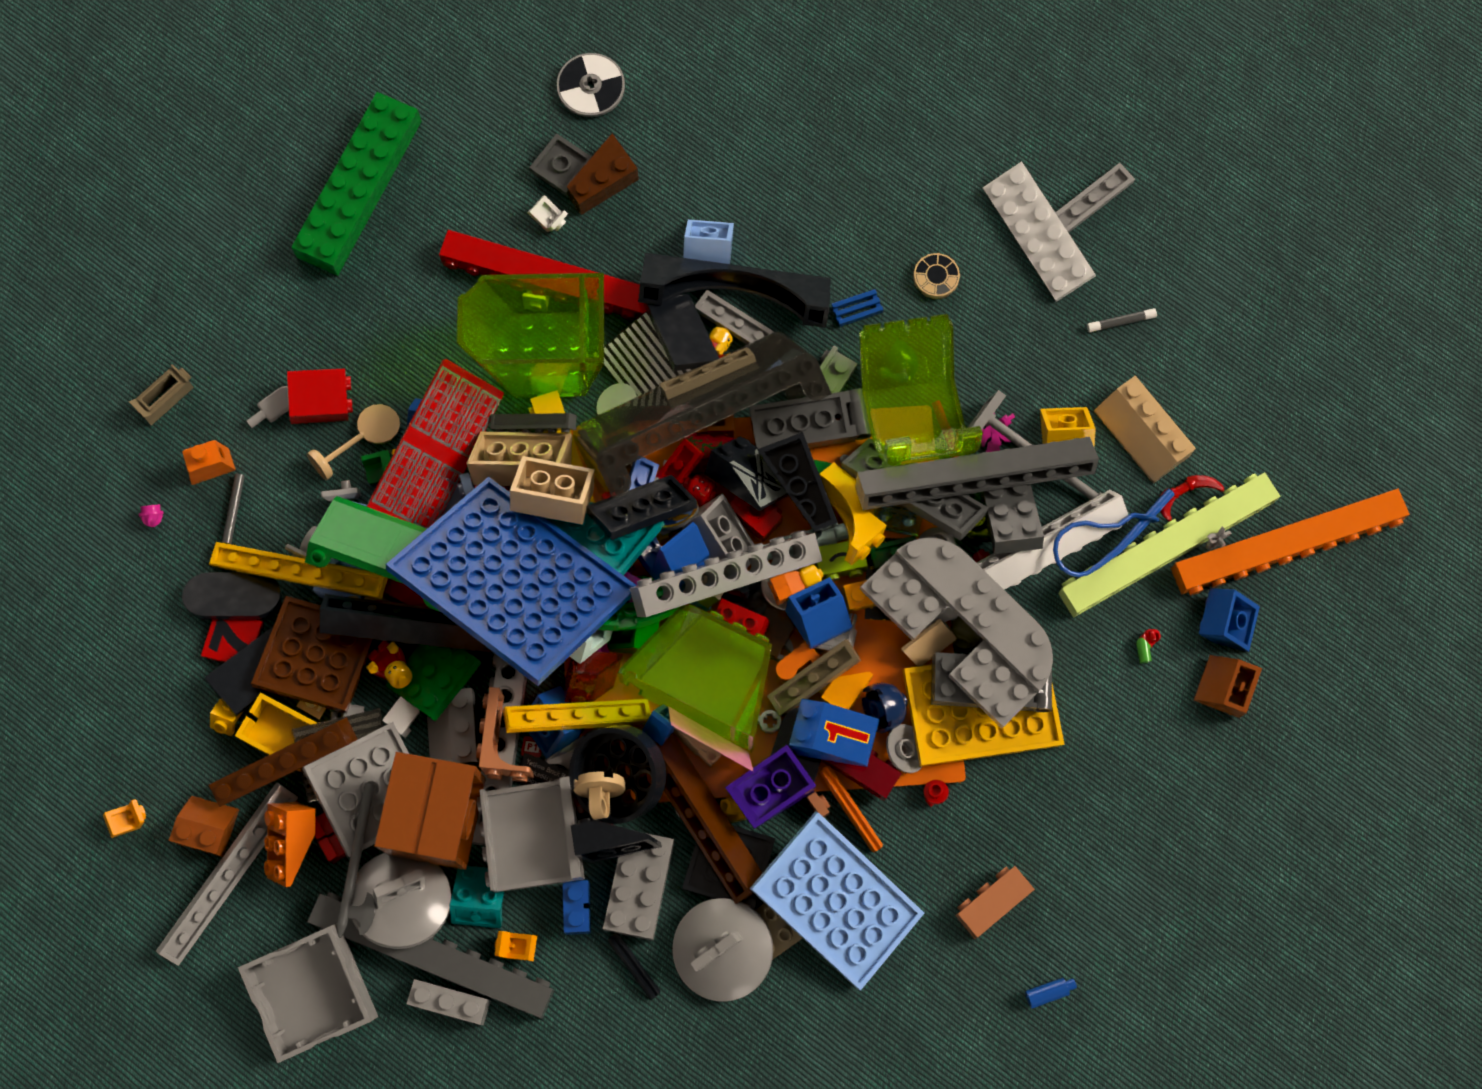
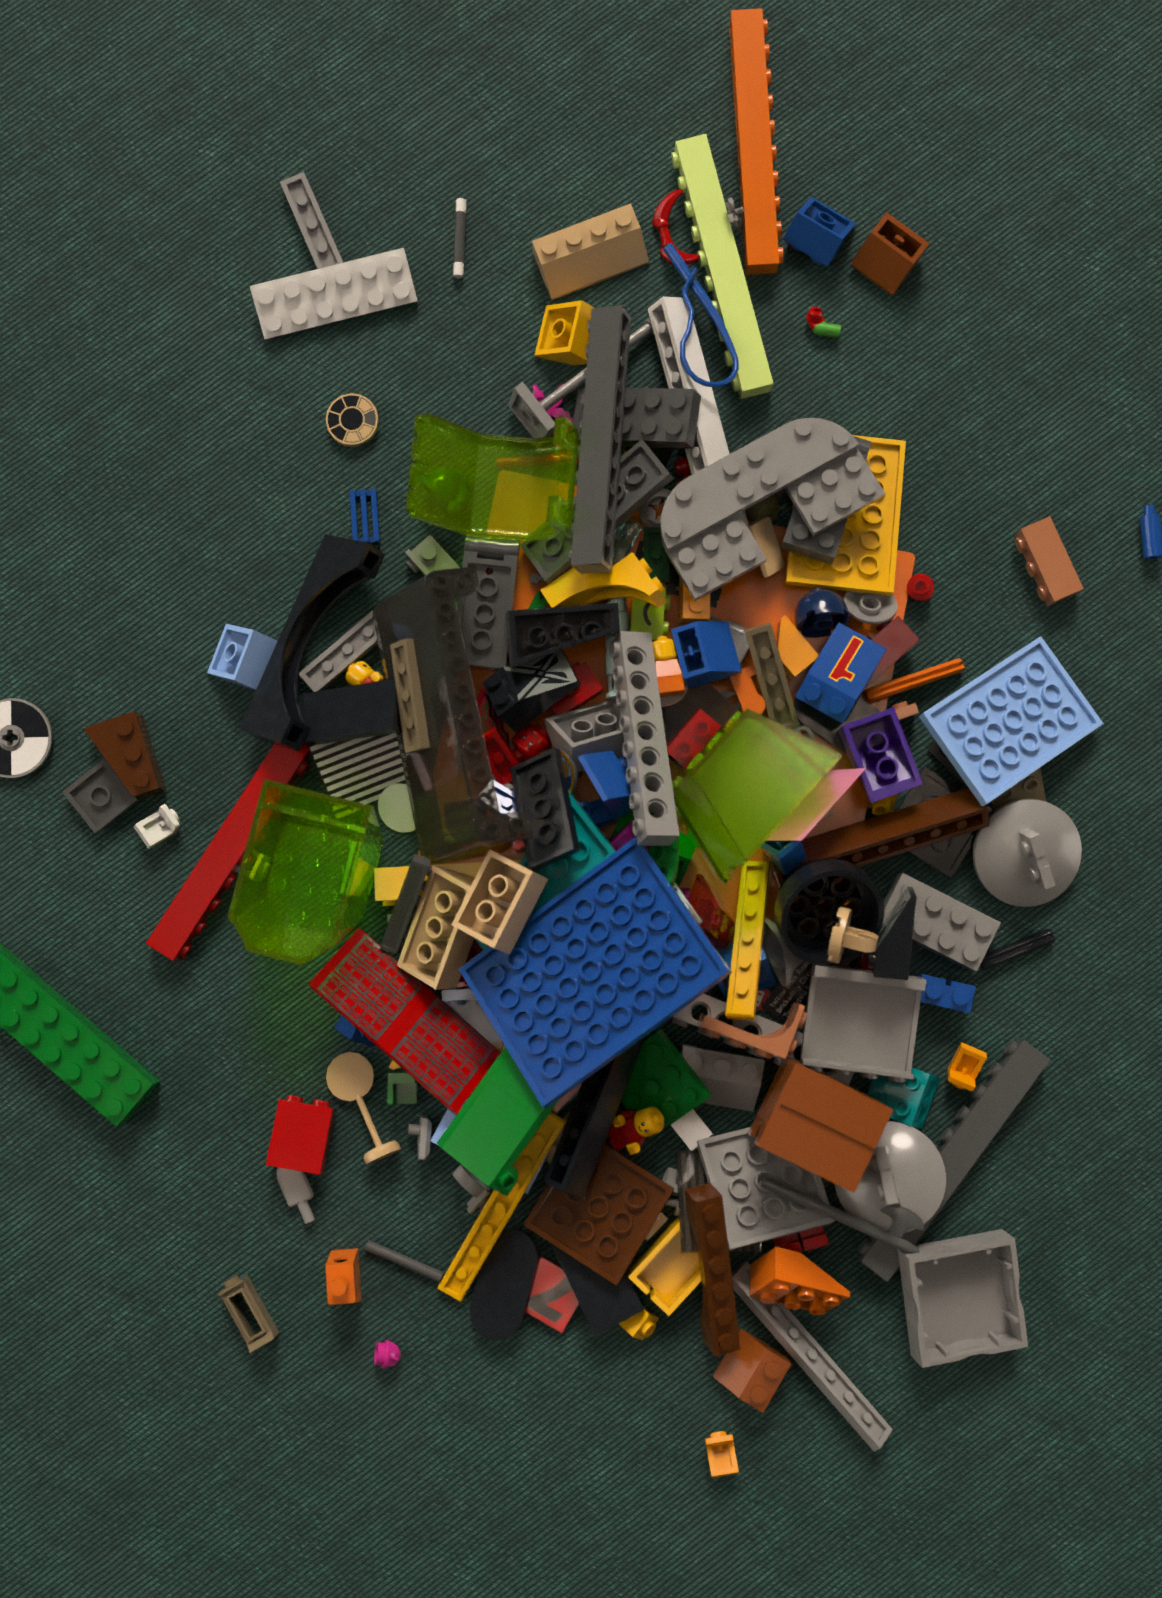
camera: 70 degrees left, 10 degrees up
(448, 1002) = (1006, 1152): light grey brick -> none

